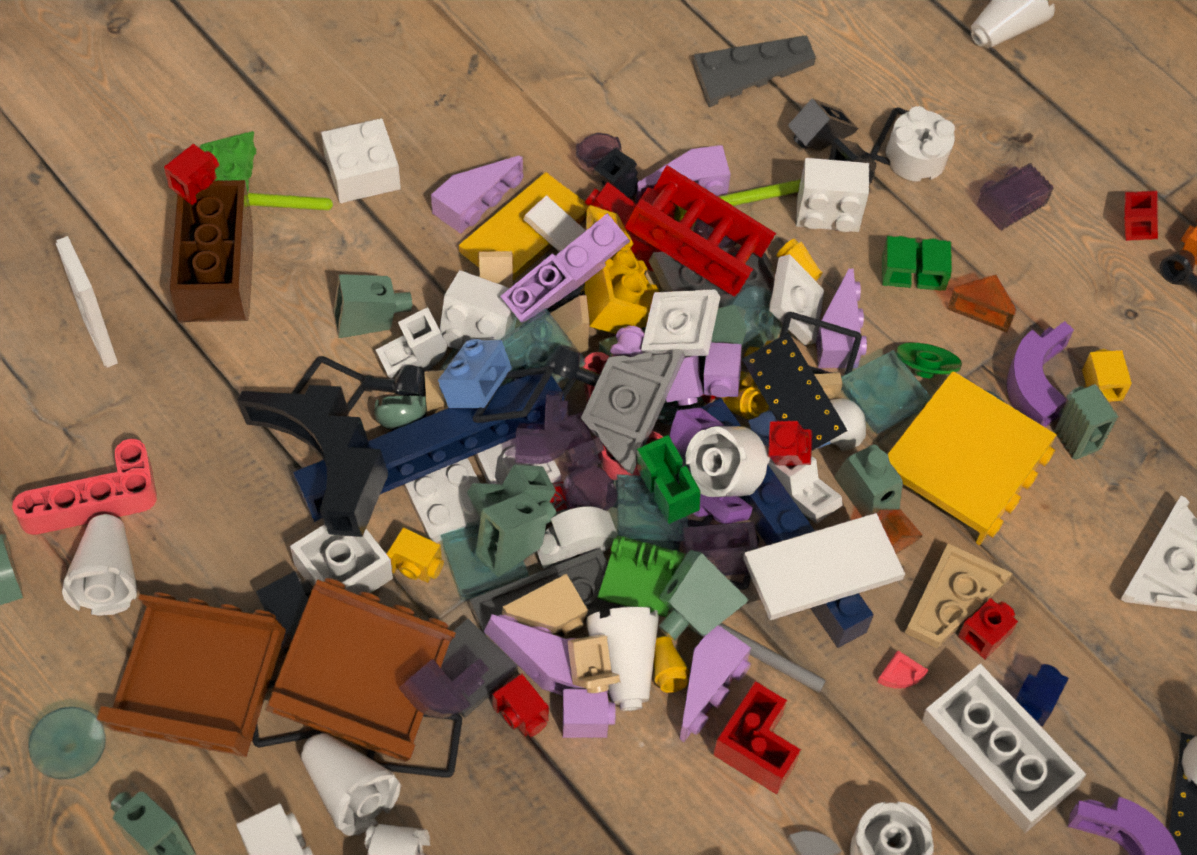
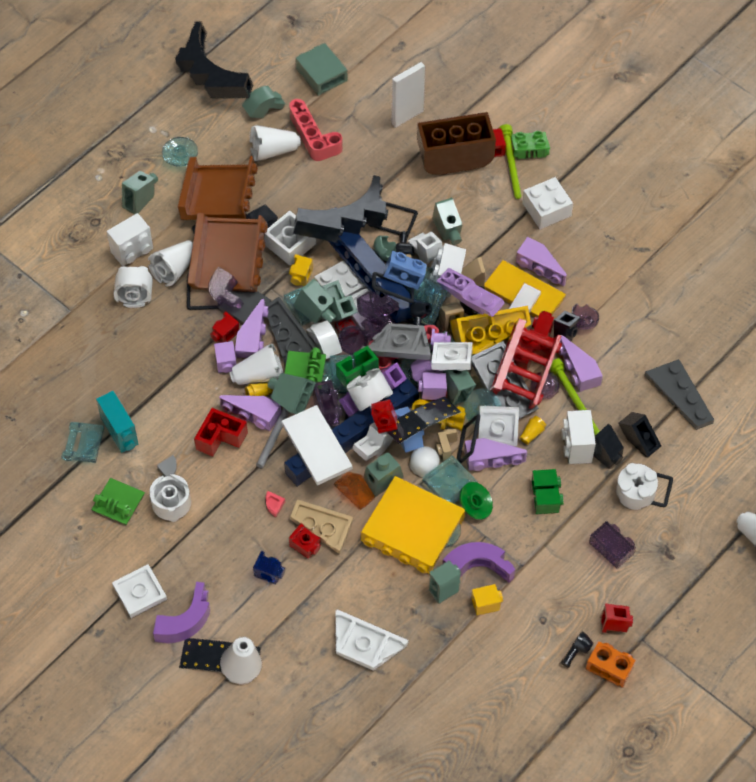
camera: 85 degrees right, 0 degrees up
(191, 172) = (488, 112): red brick -> none
(550, 606) = (276, 329): tan slope -> none
(591, 663) = (244, 346): tan bracket -> none
(984, 302) = (527, 530): clear orange slope -> none
(1003, 748) = (231, 547): white brick -> none

